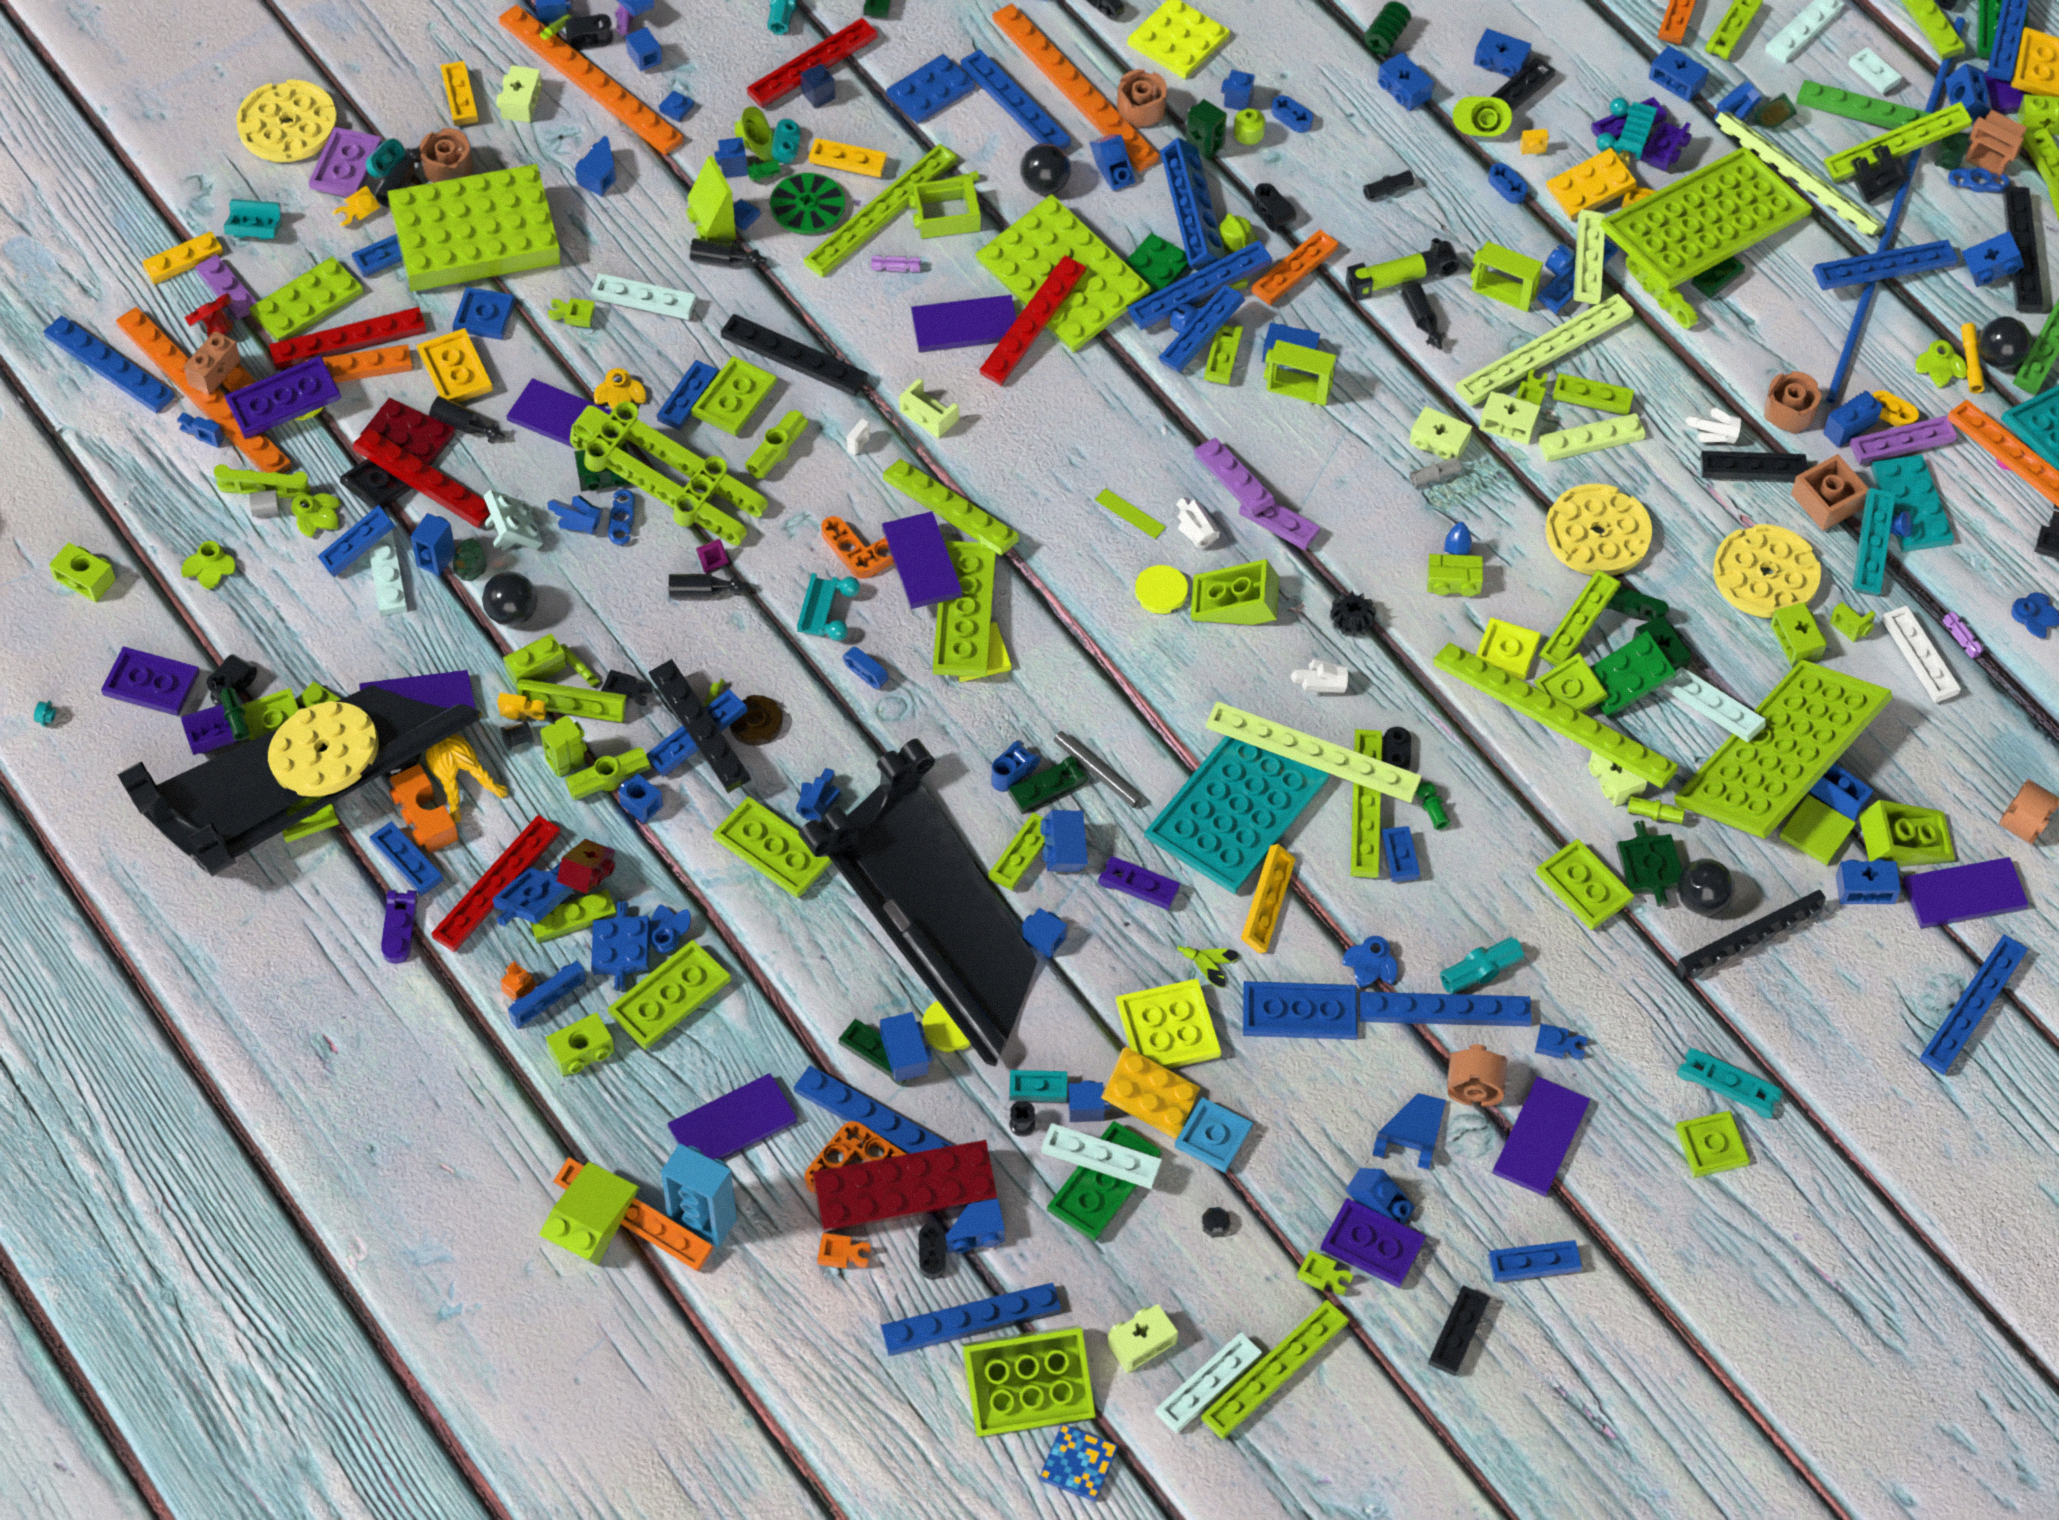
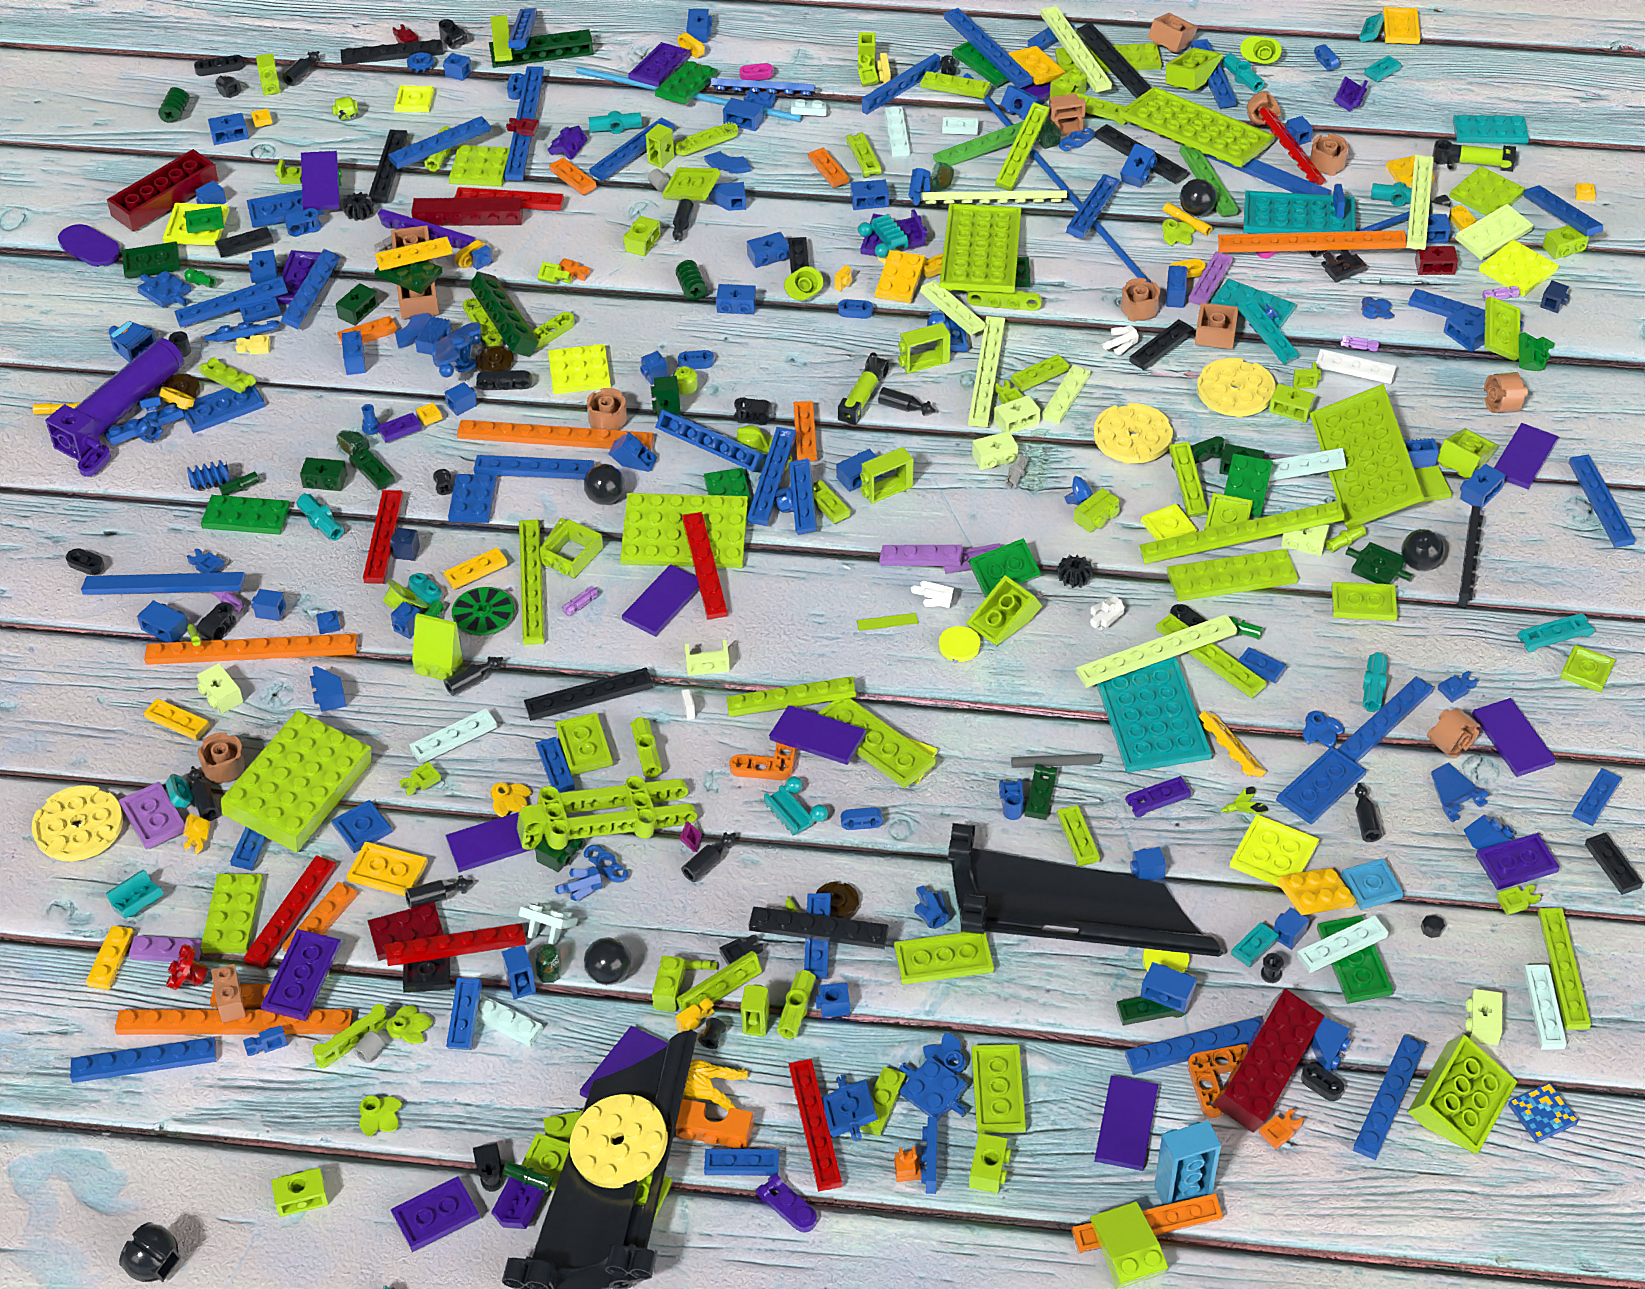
camera: 45 degrees left, 10 degrees down
(586, 866) = (861, 1061): dark red brick -> none
(922, 51) = (443, 483): none -> black bush
(1064, 841) = (1097, 807): blue brick -> none
(1292, 552) = (1009, 560): none -> green plate
(1297, 1073) = (1367, 816): none -> black wheel
(1388, 185) = (796, 354): black pin -> none
(1499, 748) = (1231, 575): none -> lime plate
(1881, 179) = (1034, 170): black plate -> none

